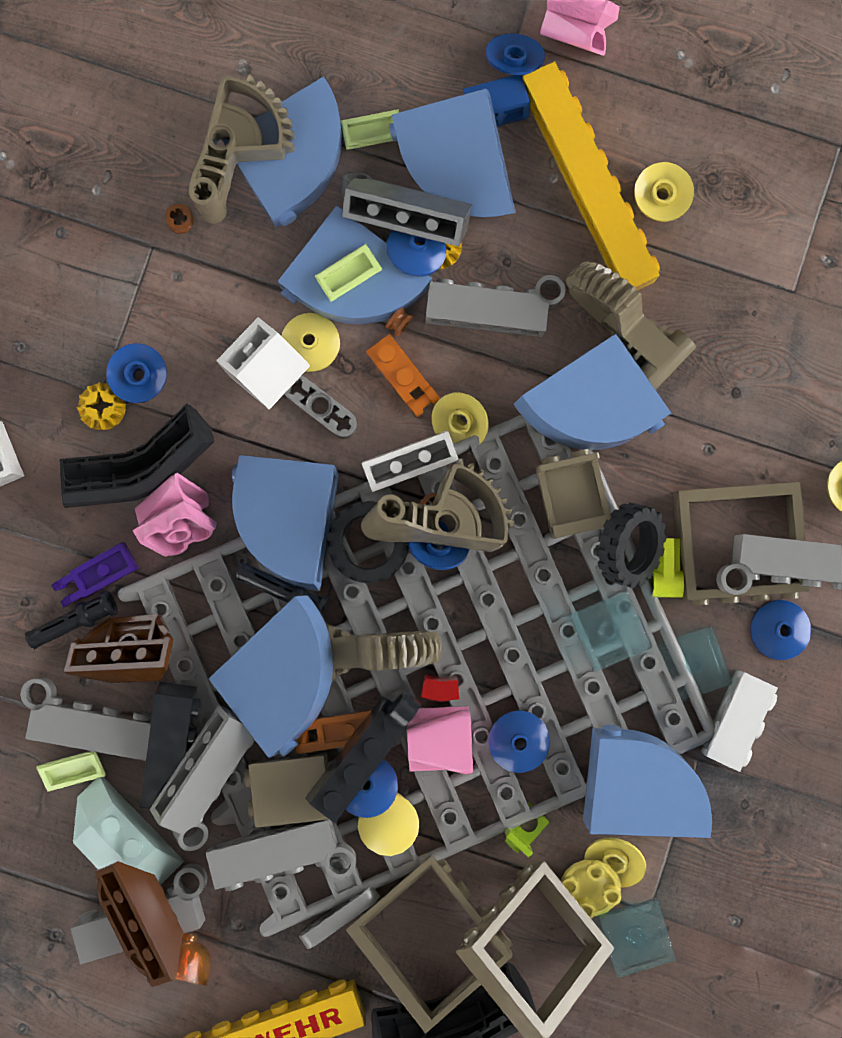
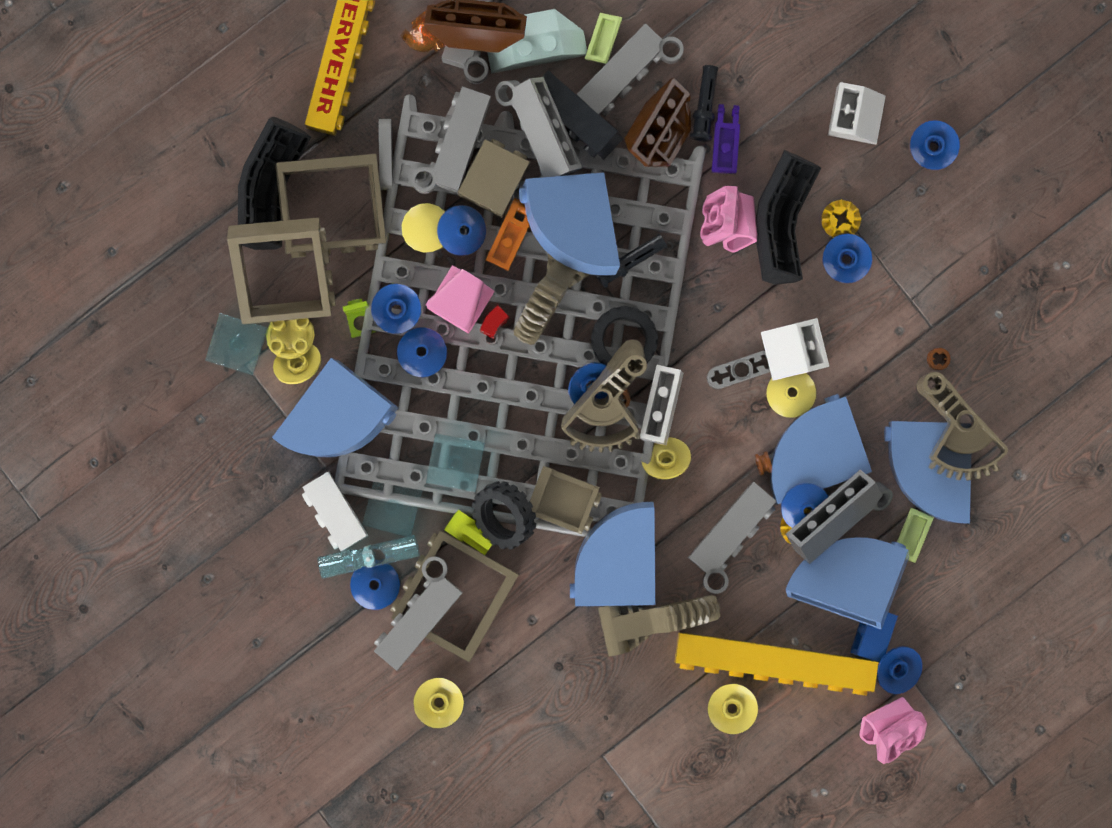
camera: 125 degrees right, 0 degrees up
(285, 515) = (680, 295): medium blue brick -> none
(348, 272) = (818, 447): yellowish green tile -> none
(362, 755) = (486, 241): black hinge -> none
(402, 374) = (725, 441): orange plate -> none
(496, 815) = (389, 297): none -> blue dish
(771, 666) = (352, 560): none -> clear light blue piece

